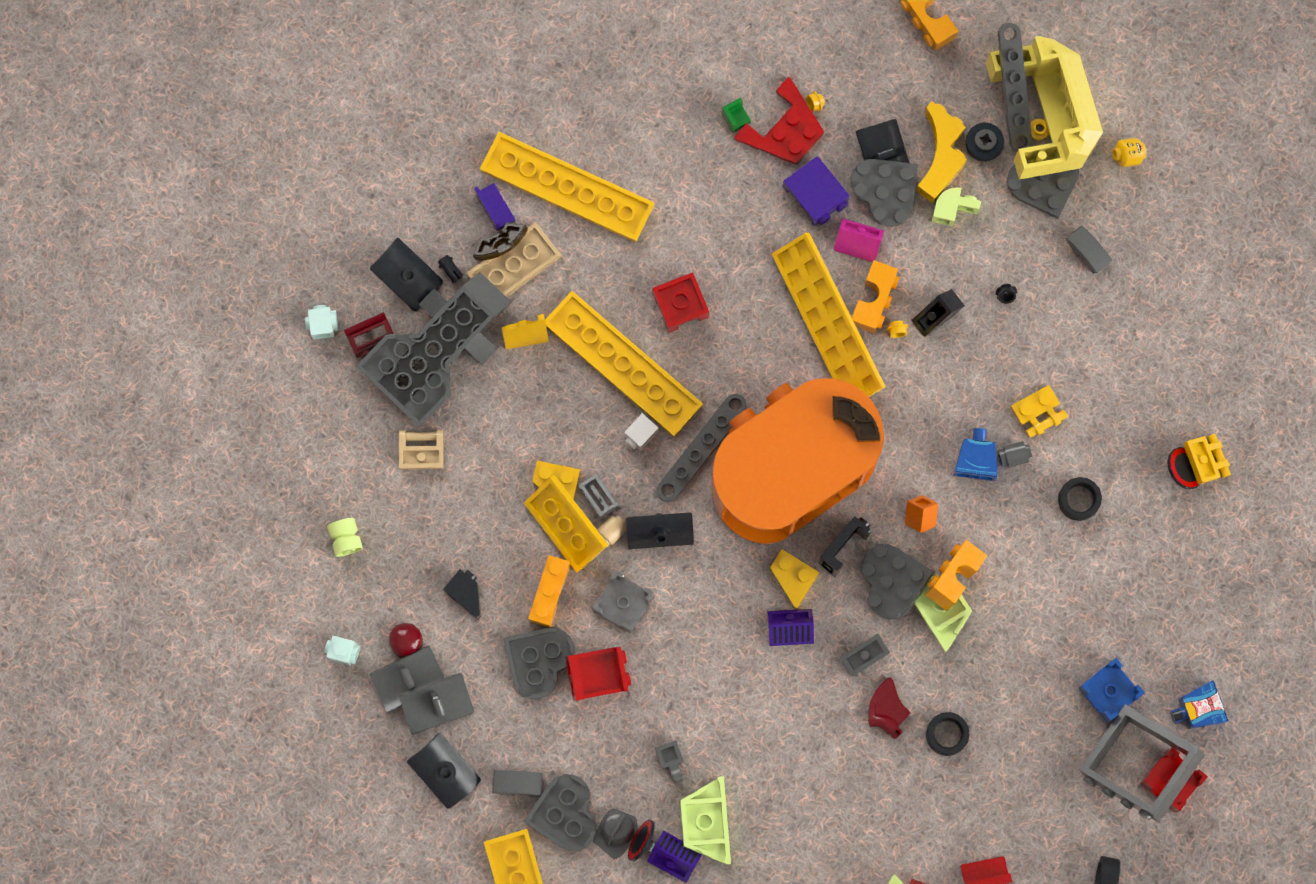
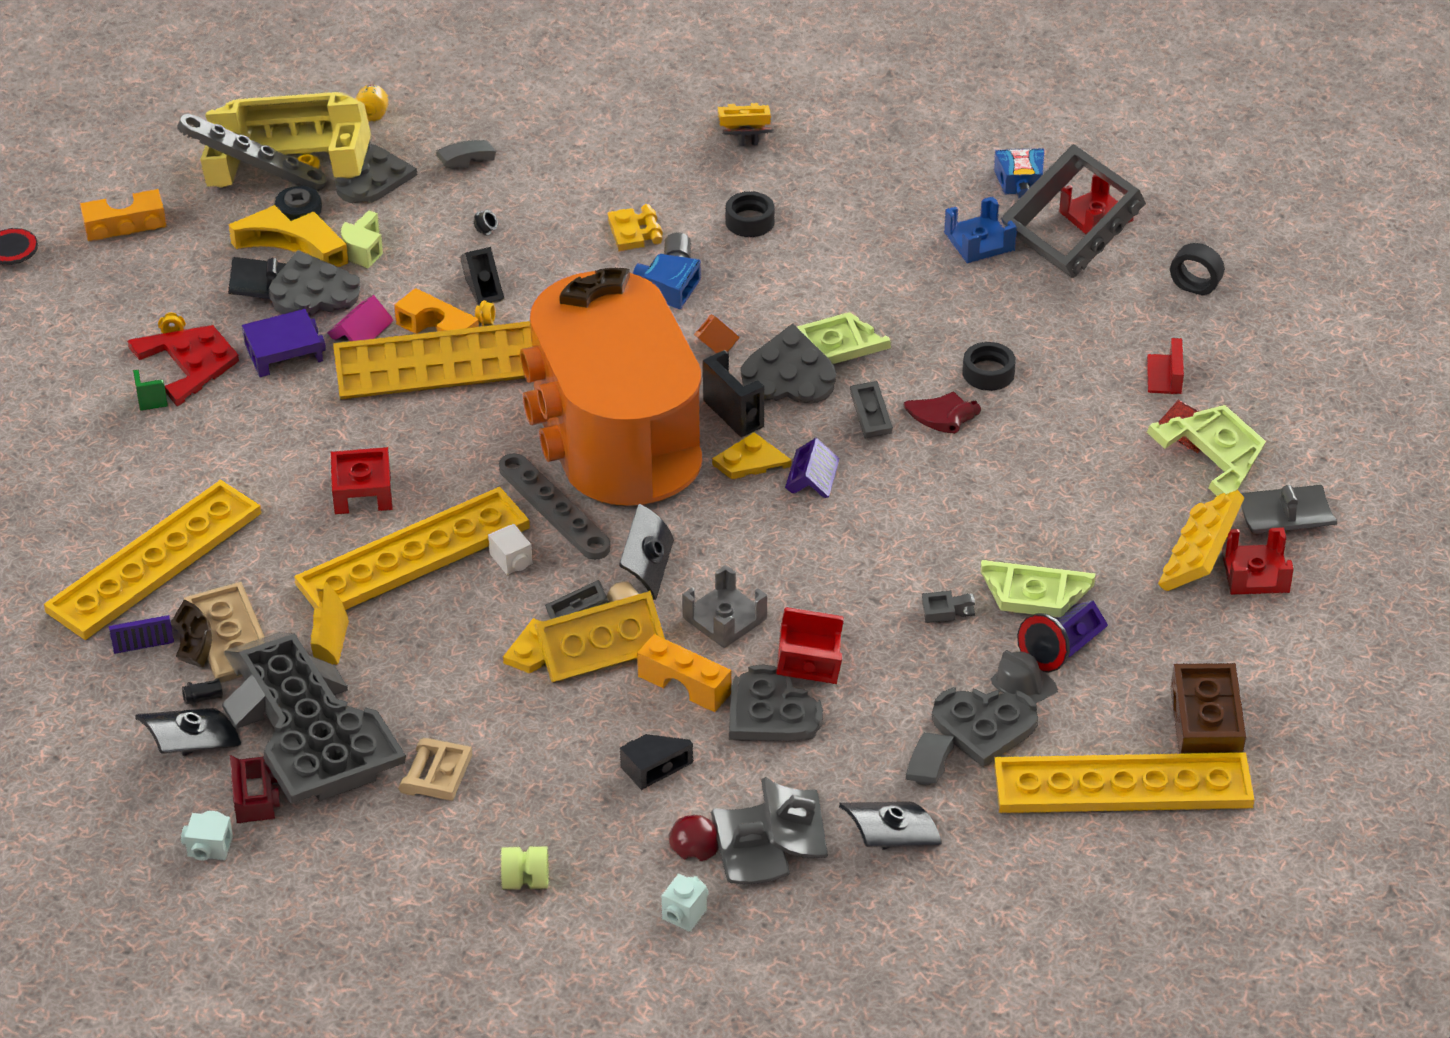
camera: 75 degrees left, 35 degrees down
(946, 588) = (810, 317): light orange arch -> none

